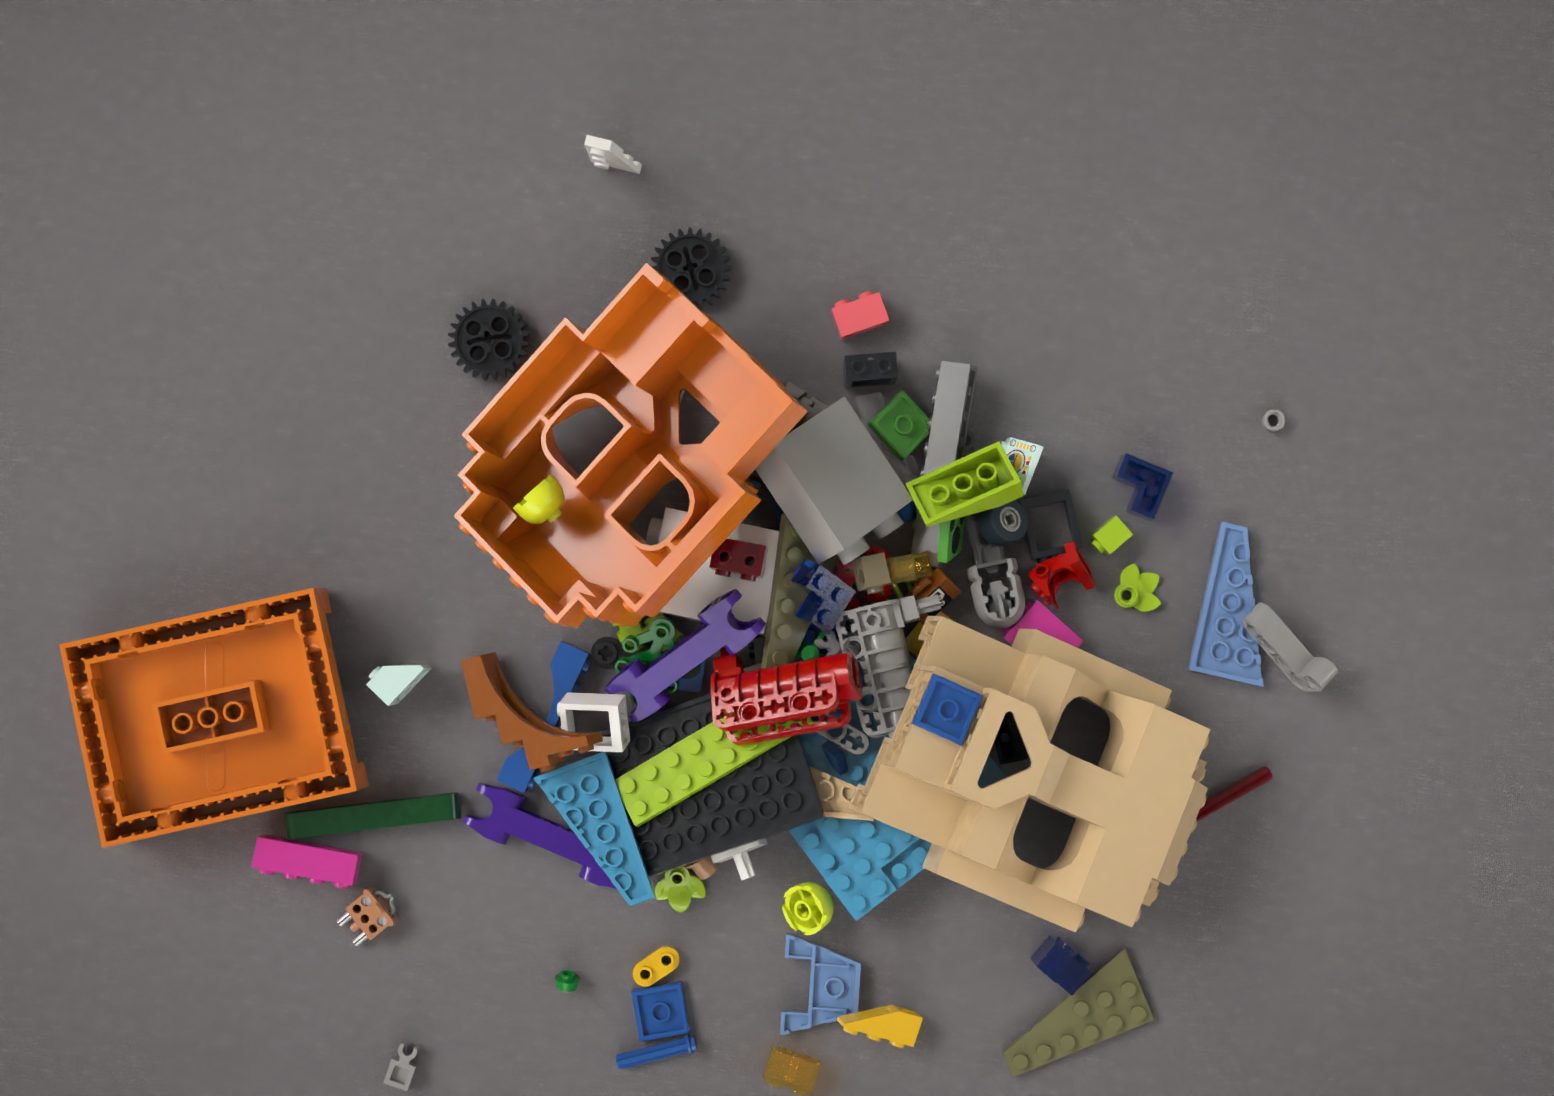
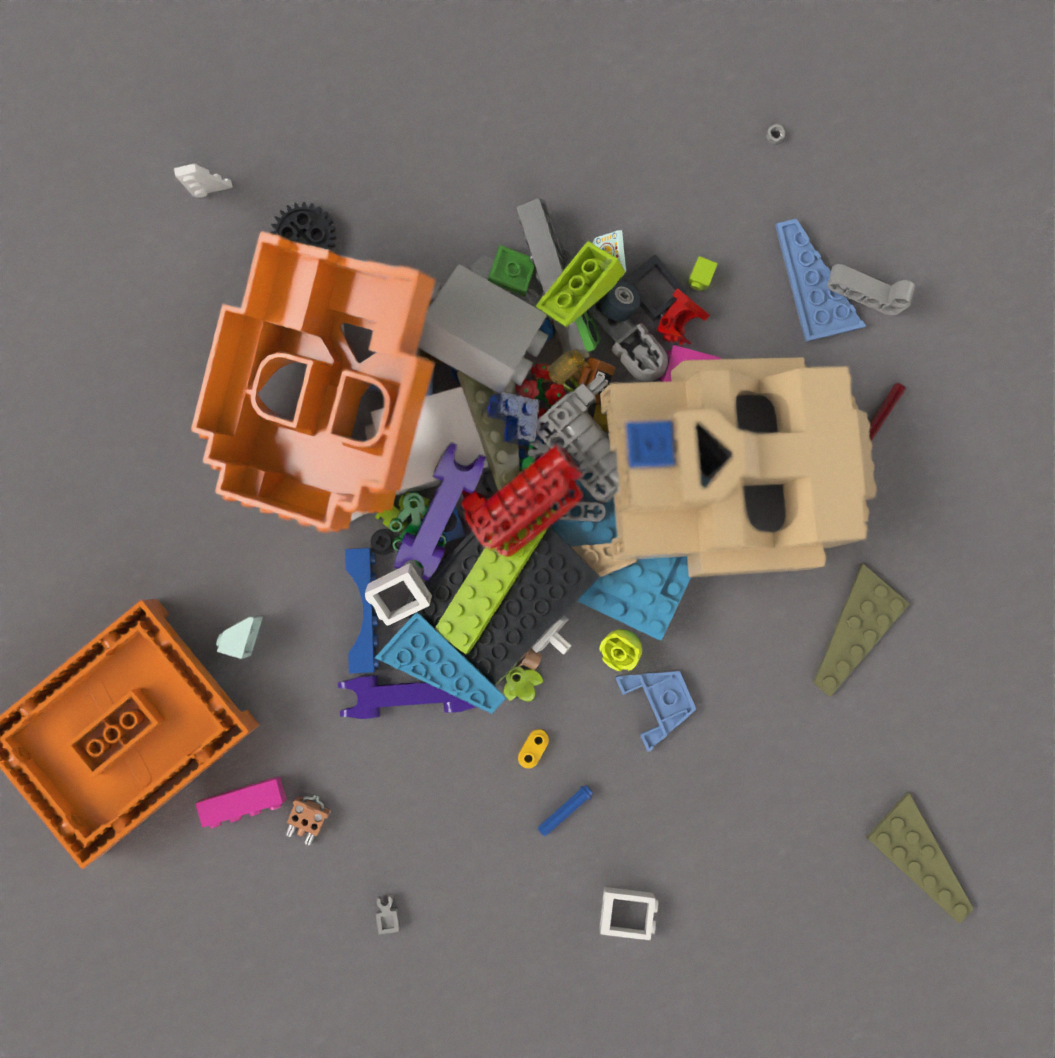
camera: 30 degrees left, 0 degrees up
(372, 815) = (272, 745): dark green beam -> none
(486, 316) = (173, 344): black gear -> none
(495, 700) = (320, 616): dark orange arch -> none
(542, 502) = (276, 451): neon yellow cylinder -> none
(567, 981) = (474, 792): green plate -> none
(660, 1011) = (553, 779): blue tile -> none
(739, 558) = (441, 420): dark red brick -> none
(791, 1070) = (669, 773): clear yellow brick -> none
(835, 757) = (585, 530): dark blue tile -> none
(859, 315) = (441, 206): coral brick -> none
(862, 372) = (470, 243): black window -> none
(871, 573) = (543, 382): dark tan brick -> none
(885, 1022) = (720, 703): yellow slope -> none
(1059, 964) = (824, 598): clear blue brick -> none
(1140, 589) = (742, 302): lime plate -> none
(1149, 484) = (710, 221): clear blue brick -> none

